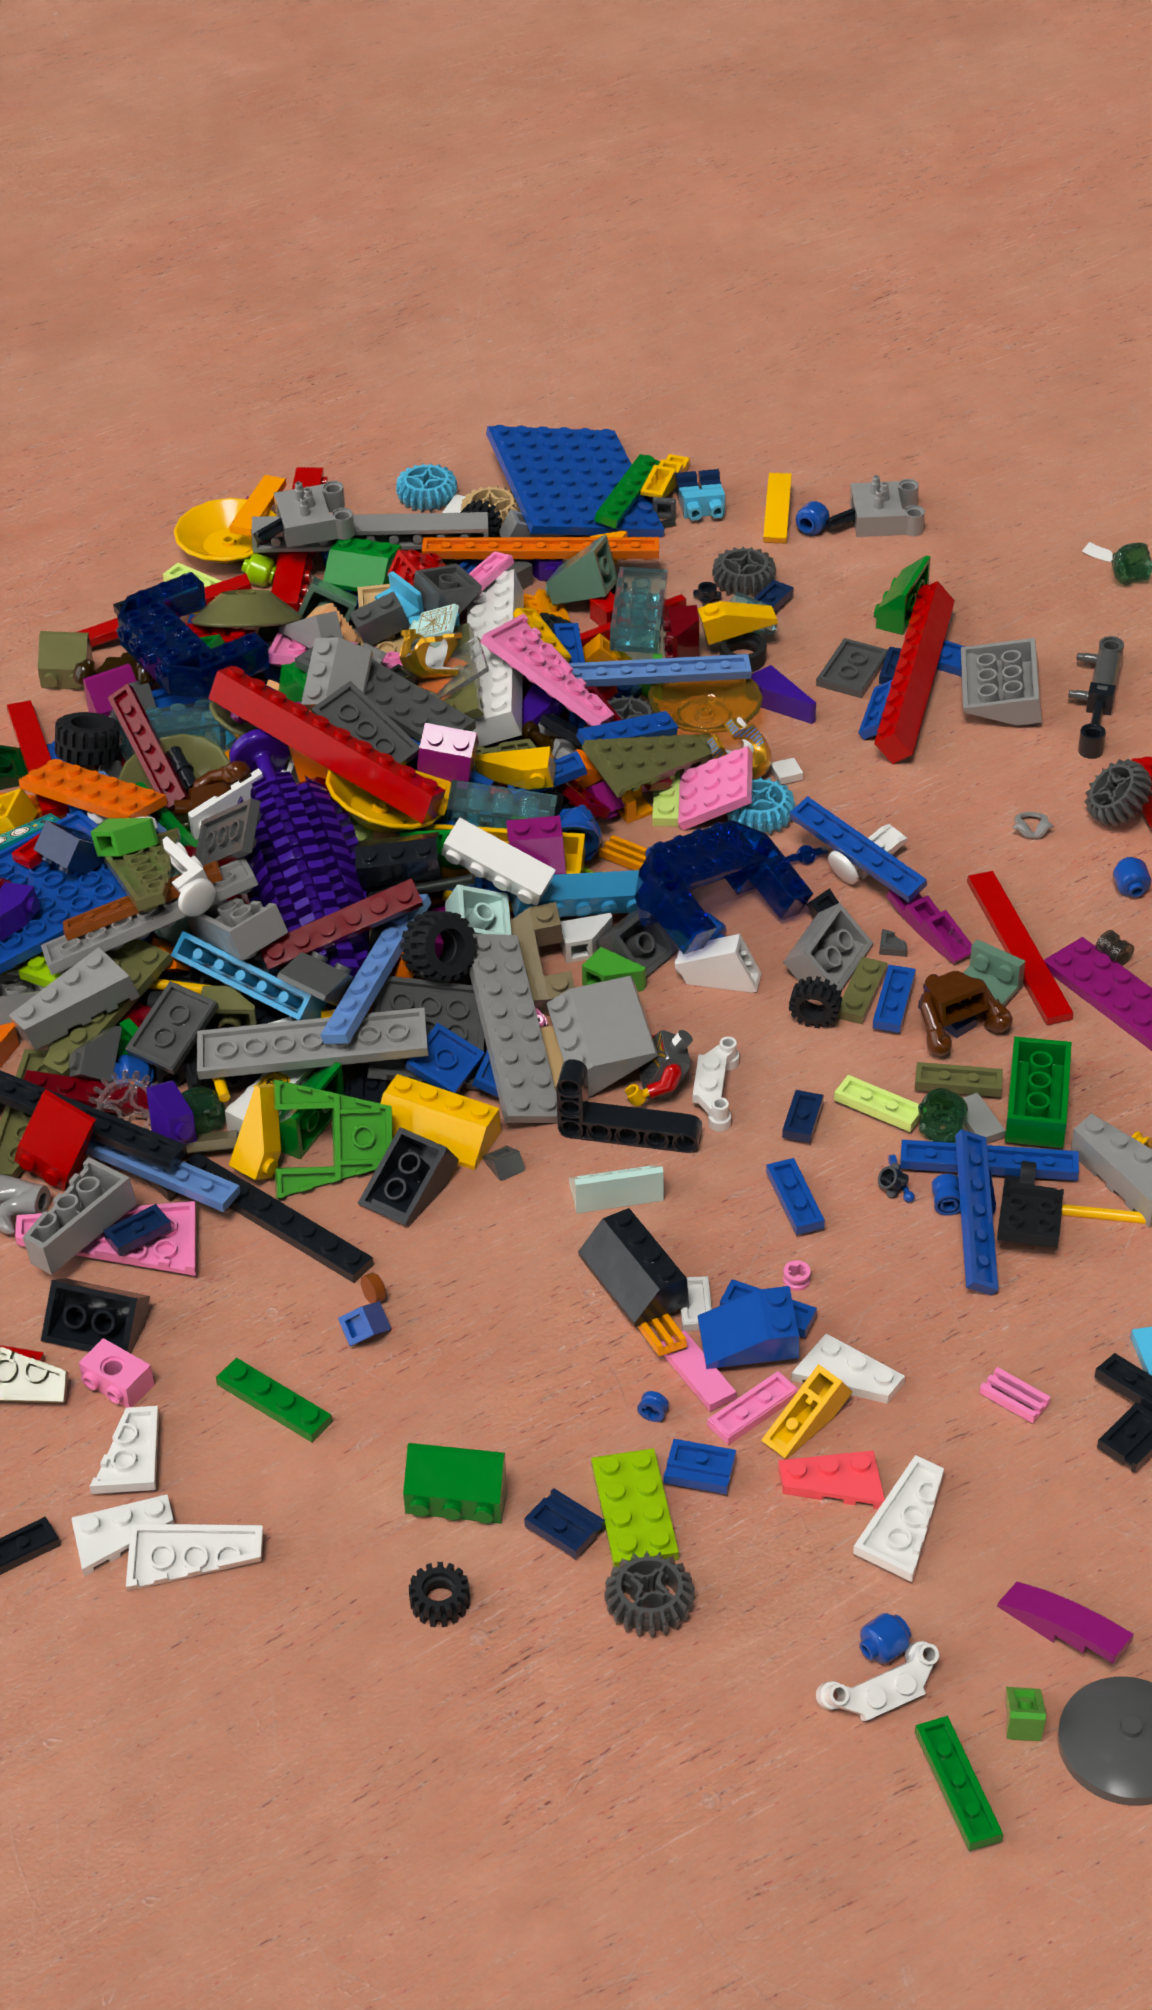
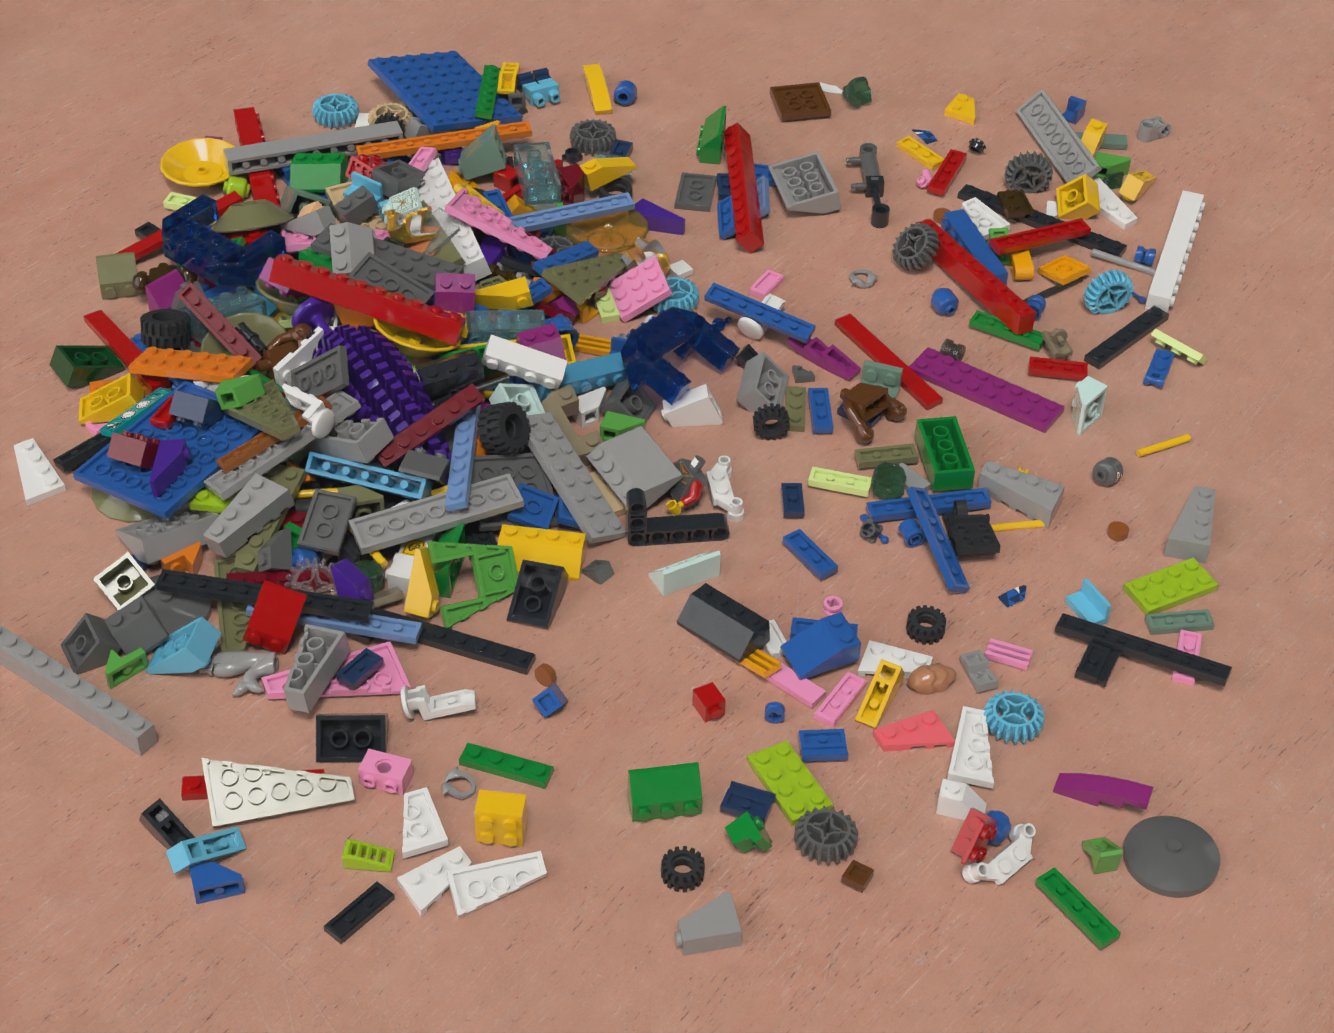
camera: 20 degrees left, 0 degrees up
(30, 1470) = (361, 848): none -> lime slope
(188, 1416) = (449, 789): none -> light grey piece
(211, 1300) = (437, 705): none -> white piece
(228, 1469) = (501, 818): none -> yellow brick
(257, 504) = (218, 140): light orange tile -> none
(306, 516) = (268, 141): light grey piece -> none
(439, 1683) = (710, 927): none -> light grey slope
(544, 1566) = (749, 833): none -> green brick
(570, 1372) = (708, 702): none -> red brick
(669, 1660) = (857, 875): none -> reddish brown plate
(847, 1646) = (974, 837): none -> bracket
(853, 1589) = (957, 799): none -> white slope
(882, 509) = (671, 79): light grey piece -> none
(890, 1406) = (931, 678): none -> nougat arm
(896, 810) = (766, 284): none -> bright pink tile
(912, 1342) = (922, 633): none -> black tyre
(939, 687) = (763, 195): none -> medium blue plate
(962, 1410) = (978, 671): none -> light grey slope
(985, 1479) = (1014, 711): none -> medium azure gear
(1048, 565) = (800, 101): none -> reddish brown plate
(1058, 1313) = (1013, 596): none -> dark blue sticker

